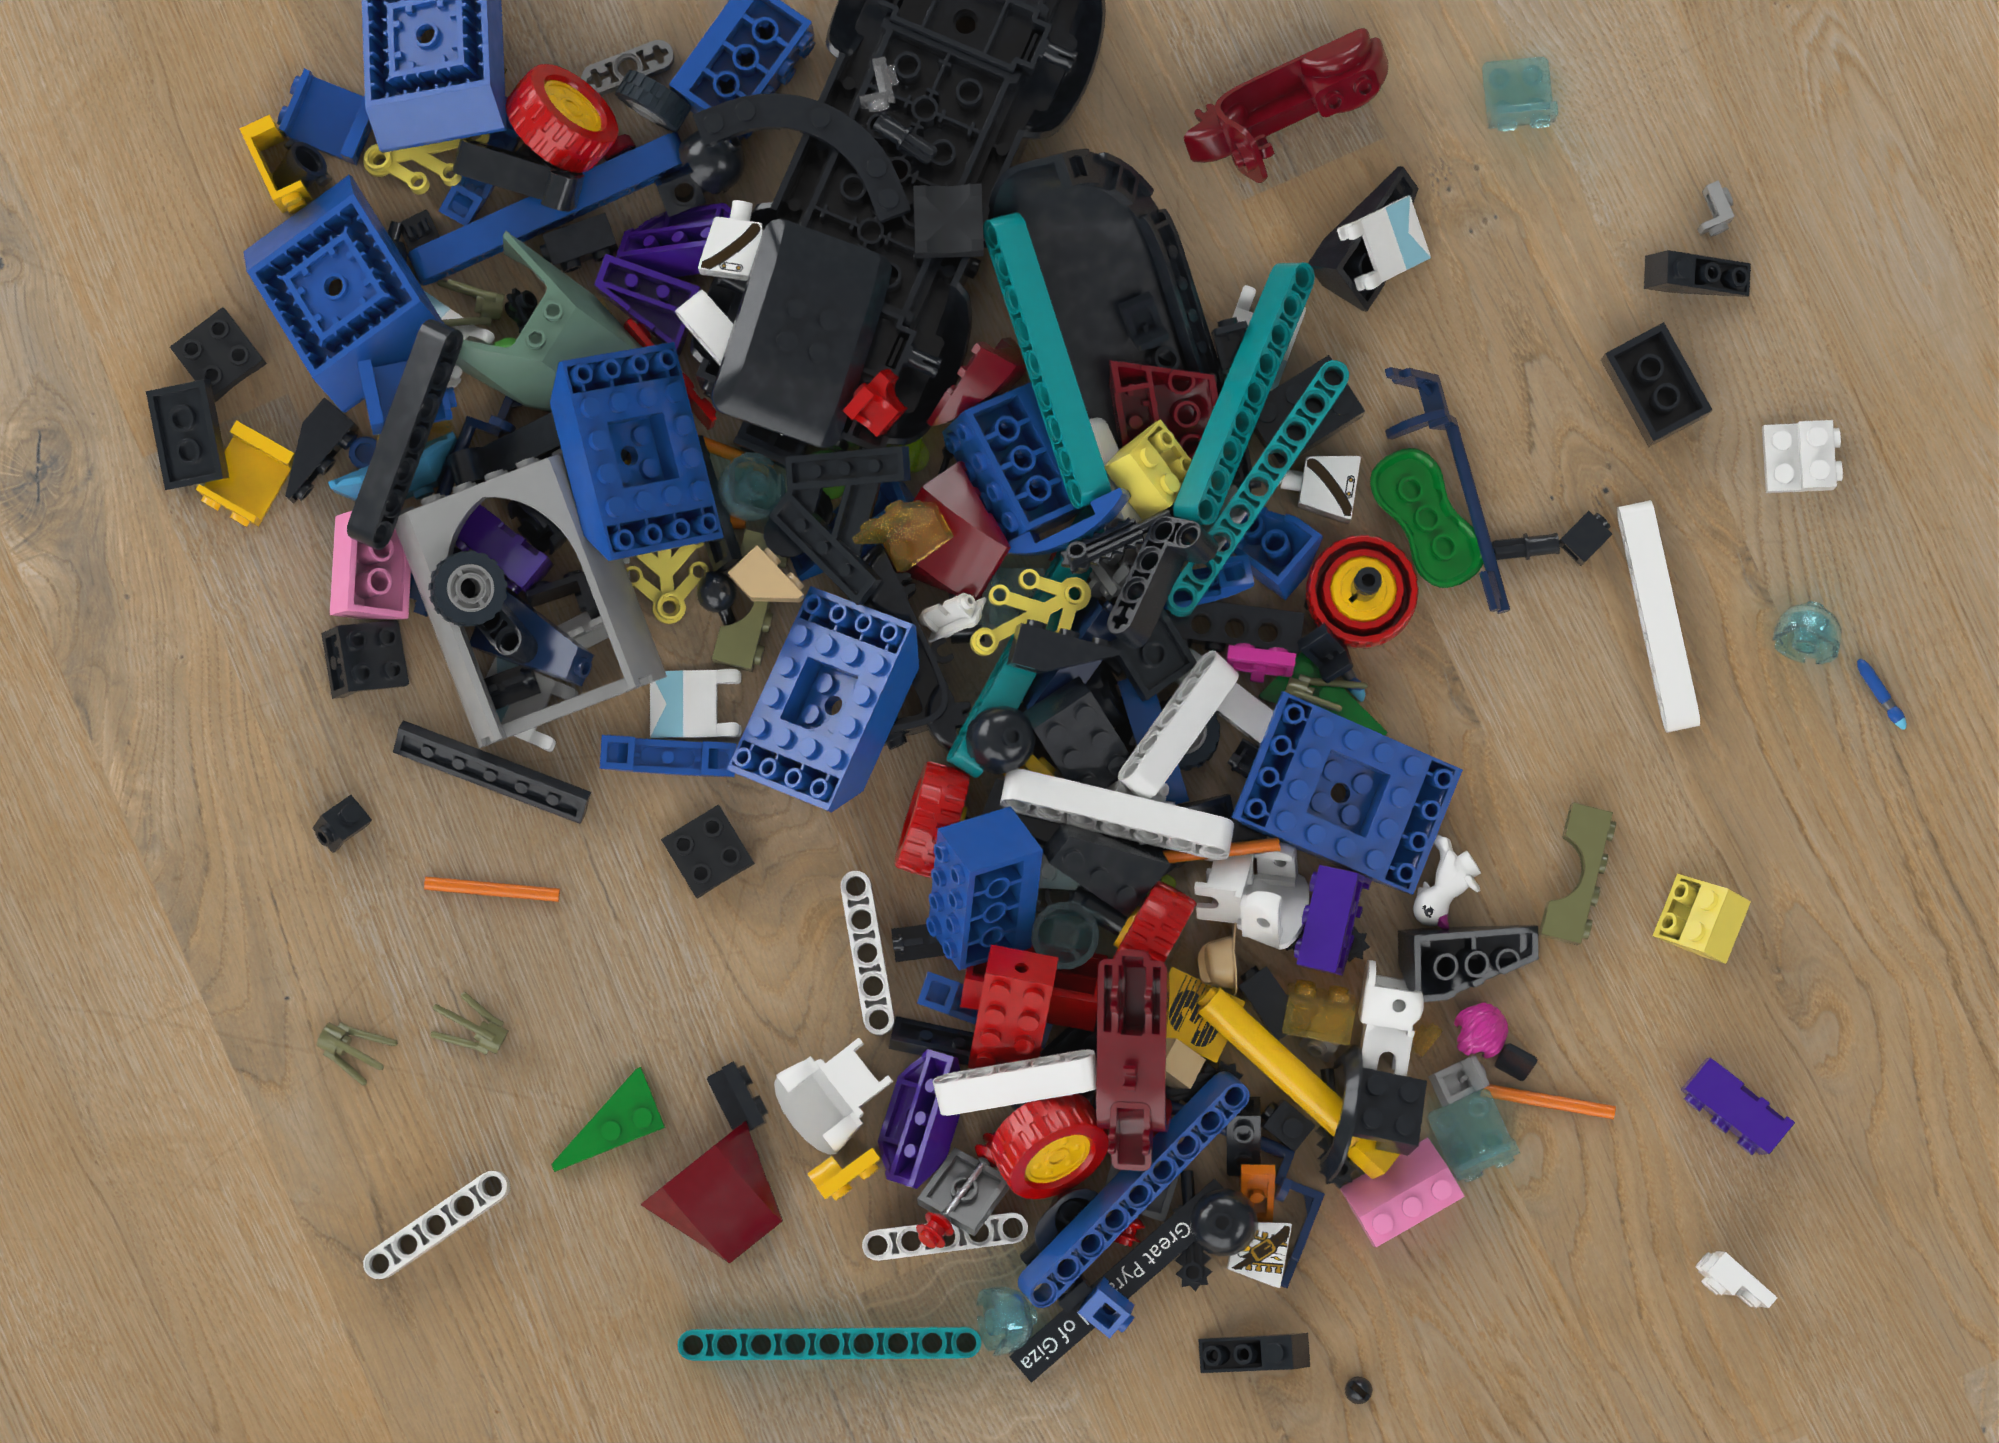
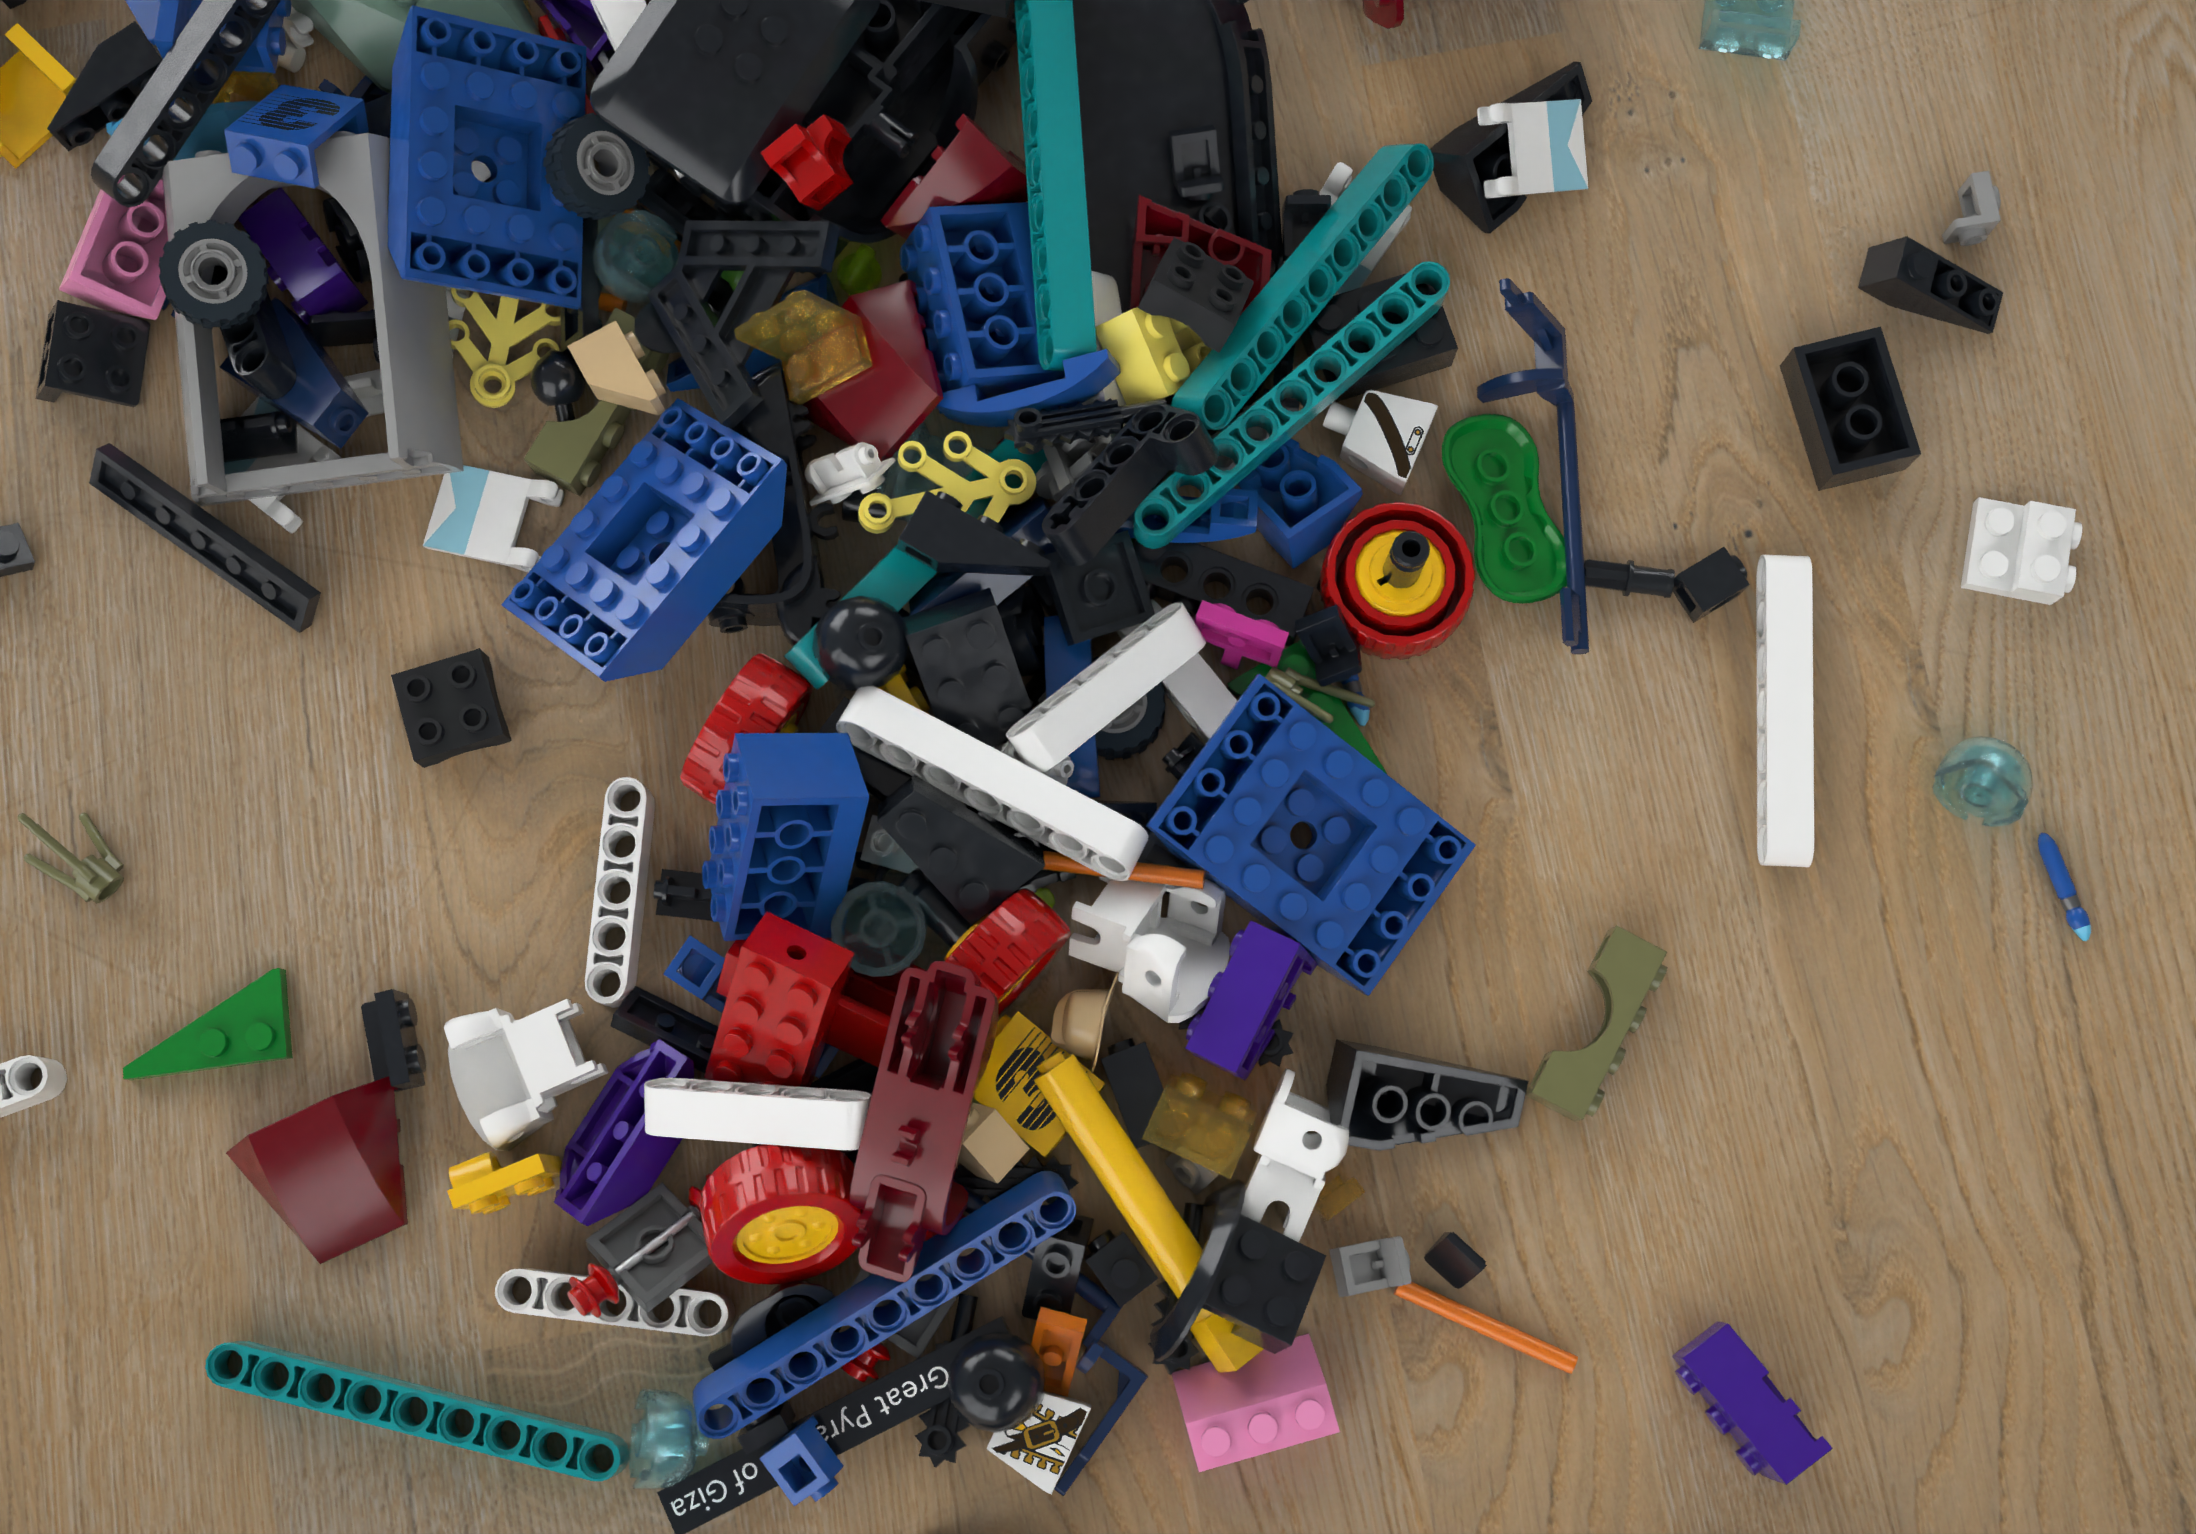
camera: 15 degrees right, 5 degrees down
(492, 468) = (285, 128): none -> blue panel
(492, 889) = (161, 688): orange bar -> none
(666, 756) = (428, 571): blue slope -> none
(708, 437) = (576, 180): none -> black wheel
(1171, 426) = (1197, 292): none -> black brick
(1452, 878) = (1427, 988): white animal -> none
(1472, 1135) = (1371, 1348): clear light blue bracket -> none
(1482, 1030) = (1418, 1204): dark pink hair -> none
(1702, 918) = (1756, 1127): light yellow slope -> none

